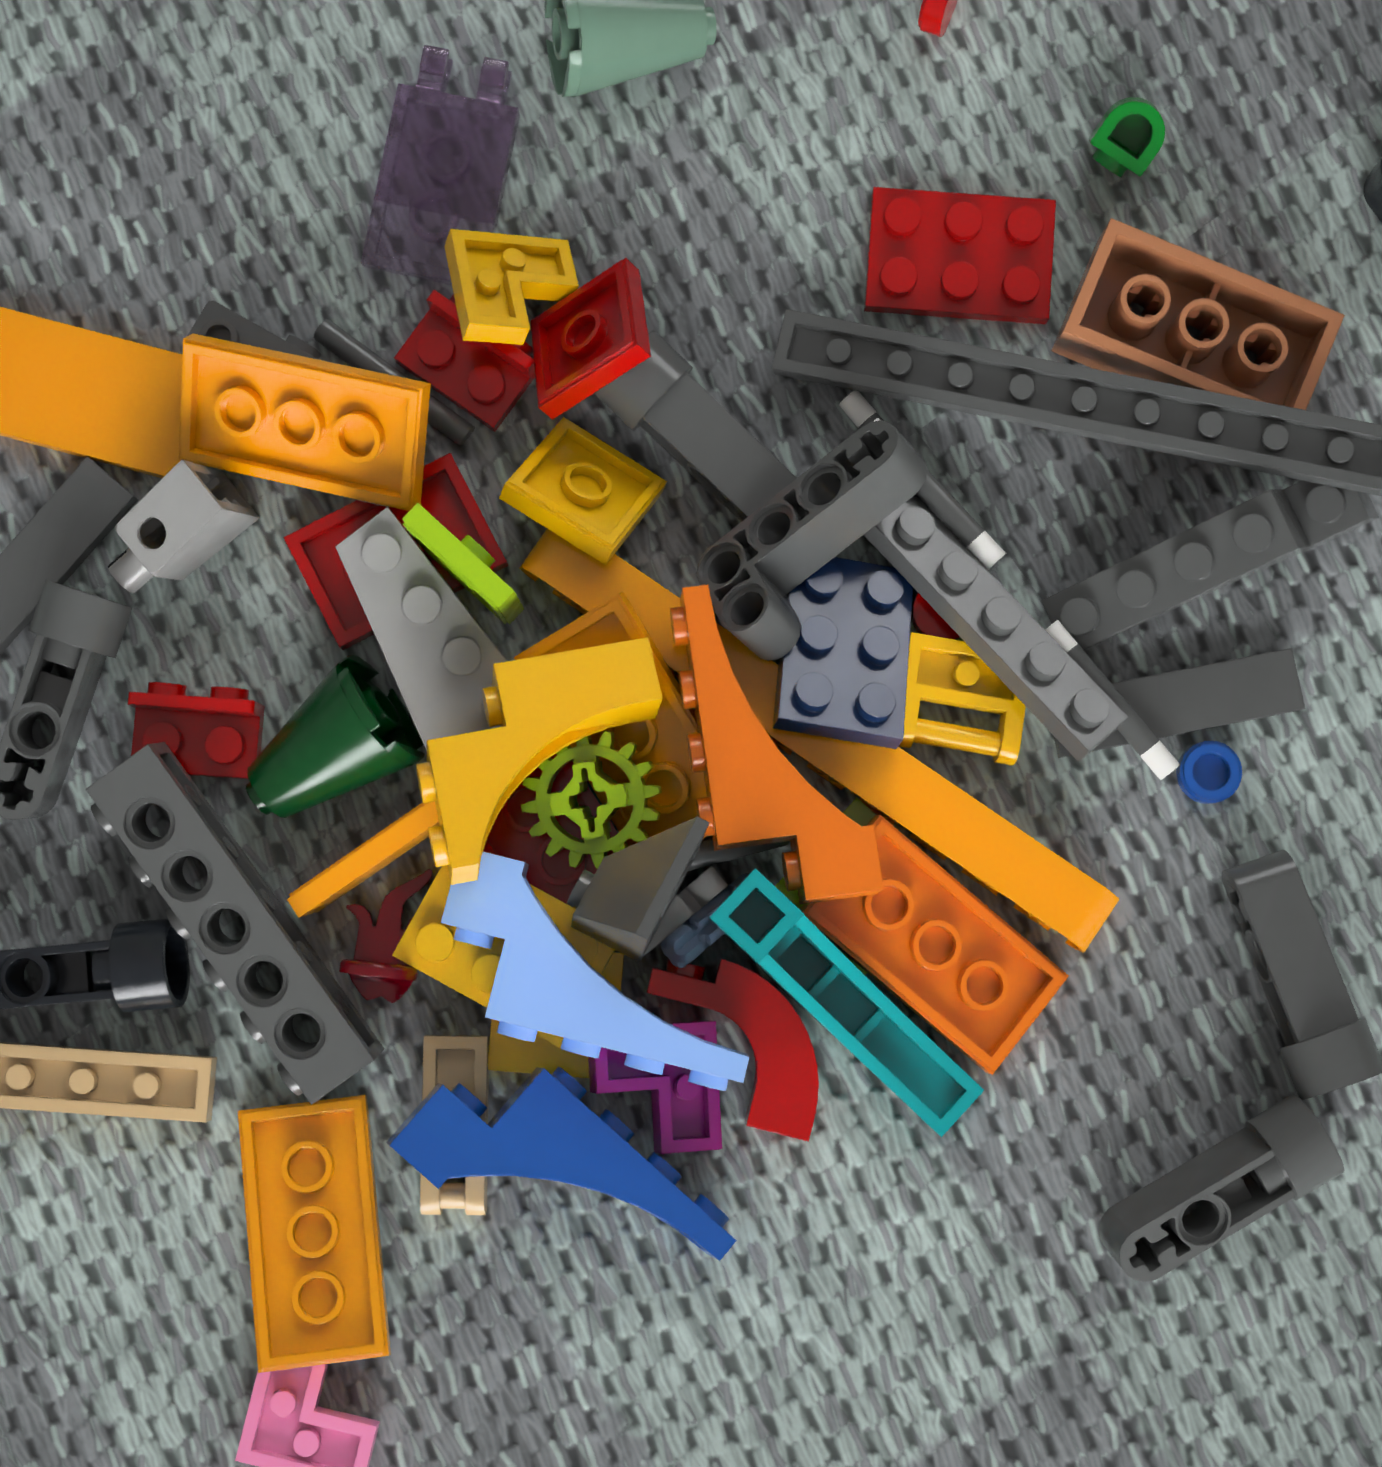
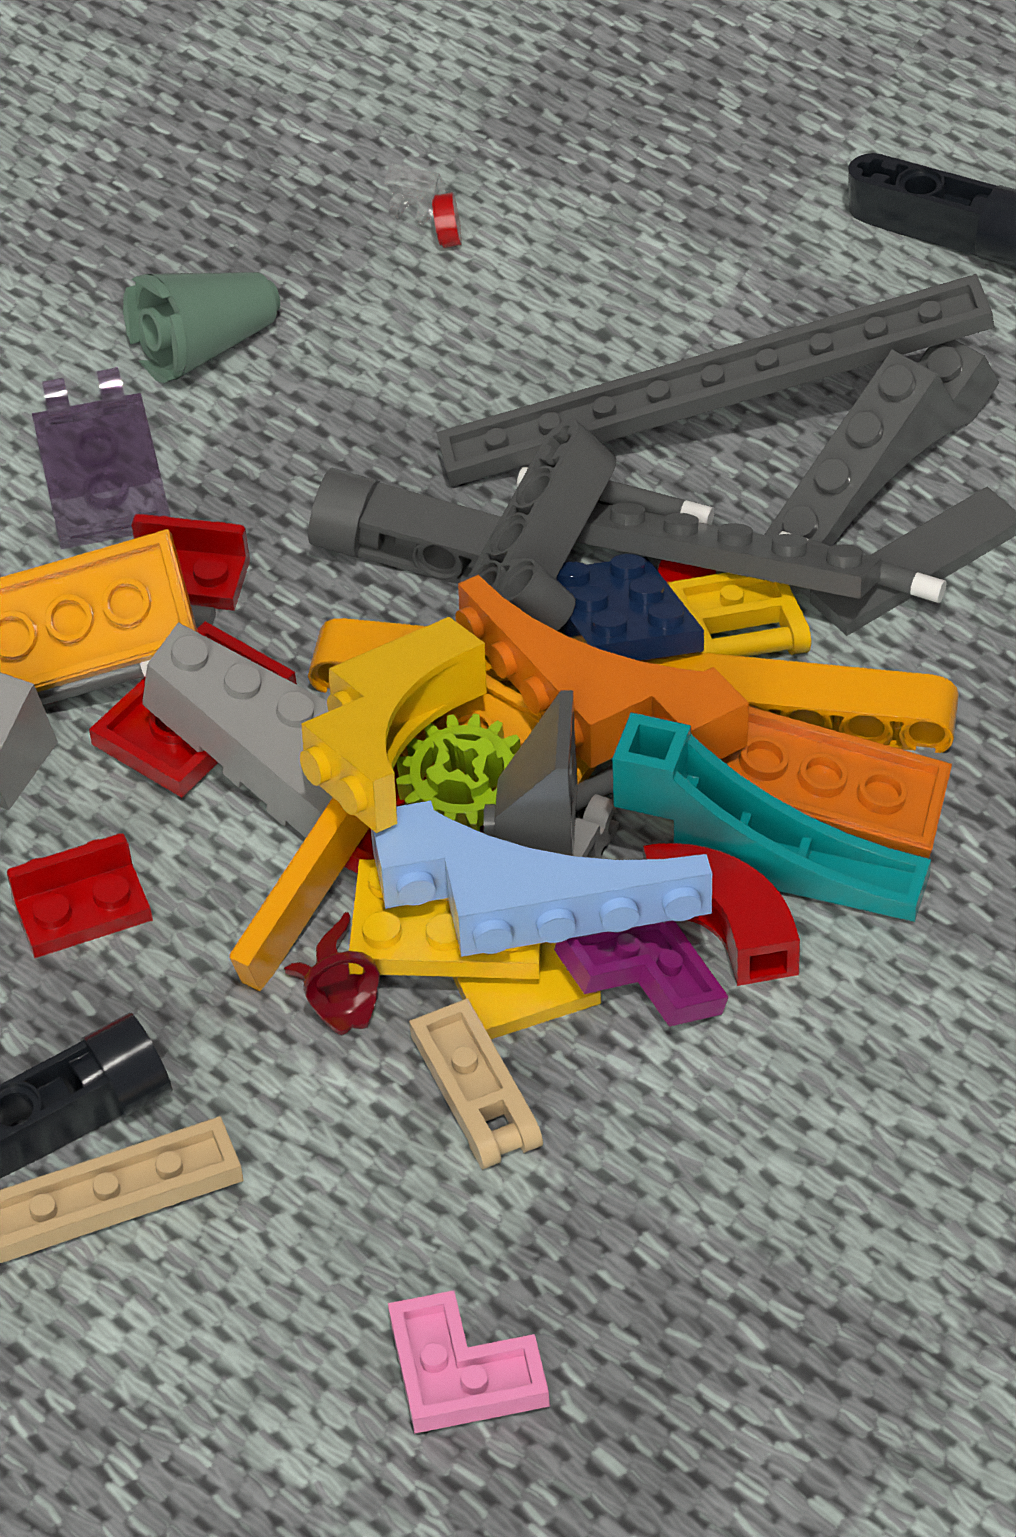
camera: 20 degrees left, 35 degrees down
(234, 883) = (121, 943): dark grey brick -> none
(313, 1234) = (390, 1214): light orange tile -> none
(334, 743) = (213, 840): dark green cone -> none
(465, 562) = (269, 636): lime plate -> none
(496, 274) = (192, 491): yellow plate -> none
(555, 1138) = (582, 1034): blue arch -> none
(583, 490) = (335, 596): yellow plate -> none
(589, 338) = (285, 490): red plate -> none
(698, 931) = (619, 835): sand blue axle -> none
(960, 255) = (555, 355): red plate -> none
(1128, 136) = (646, 236): green plate -> none
(1186, 291) = (743, 300): nougat brick -> none
(1209, 772) = (976, 592): blue tile -> none

